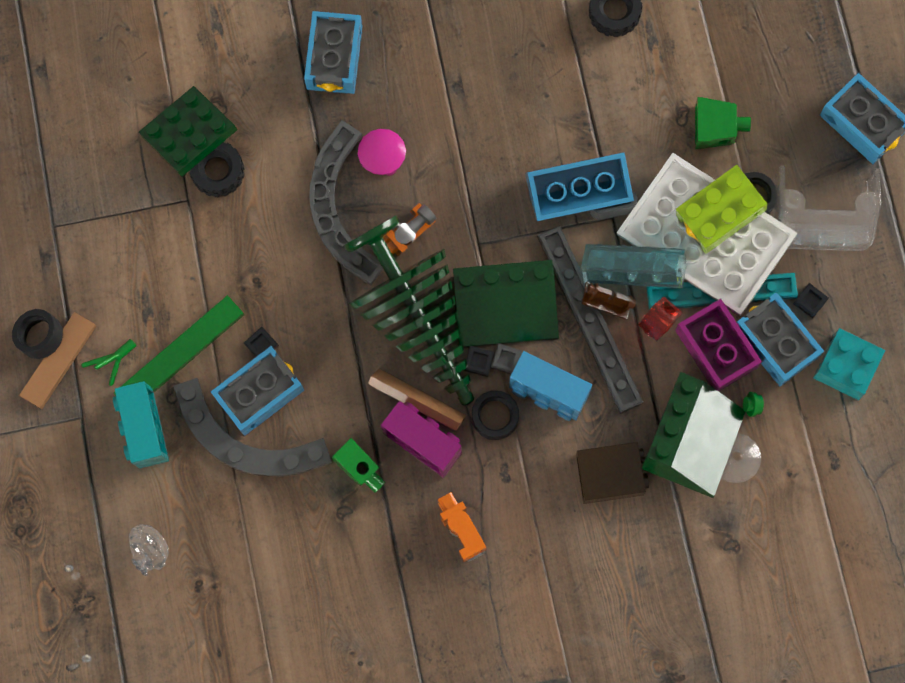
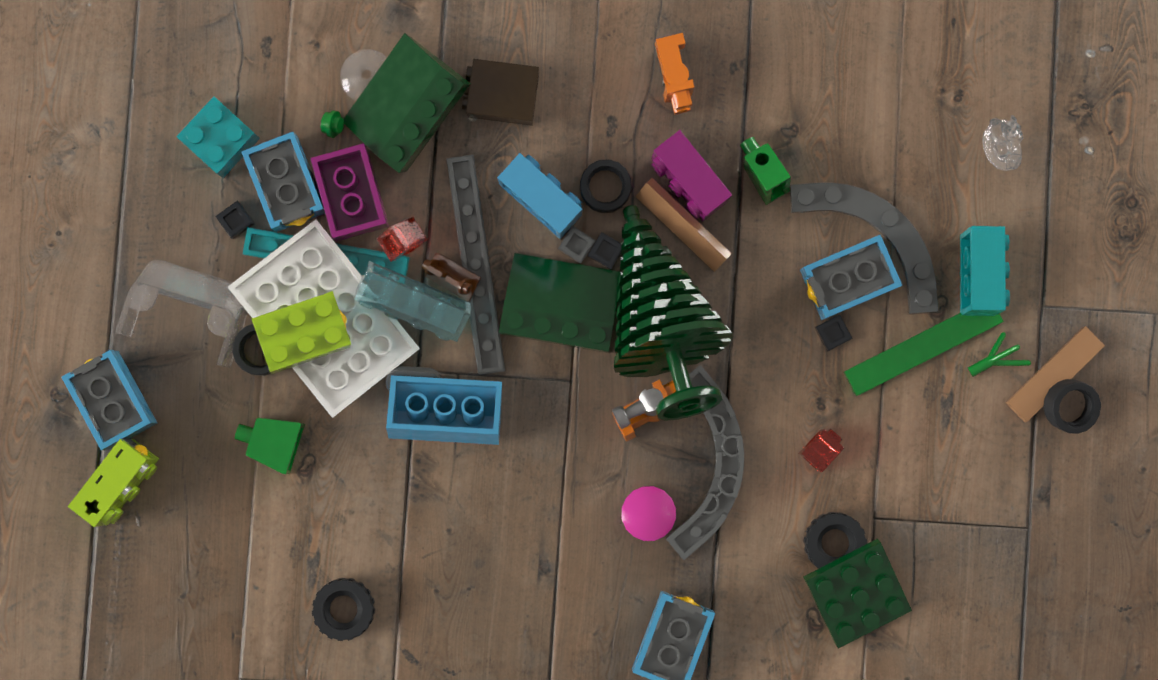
camera: 170 degrees left, 10 degrees up
(246, 241) = (822, 449): none -> clear red brick
(837, 52) = (114, 483): none -> lime piece

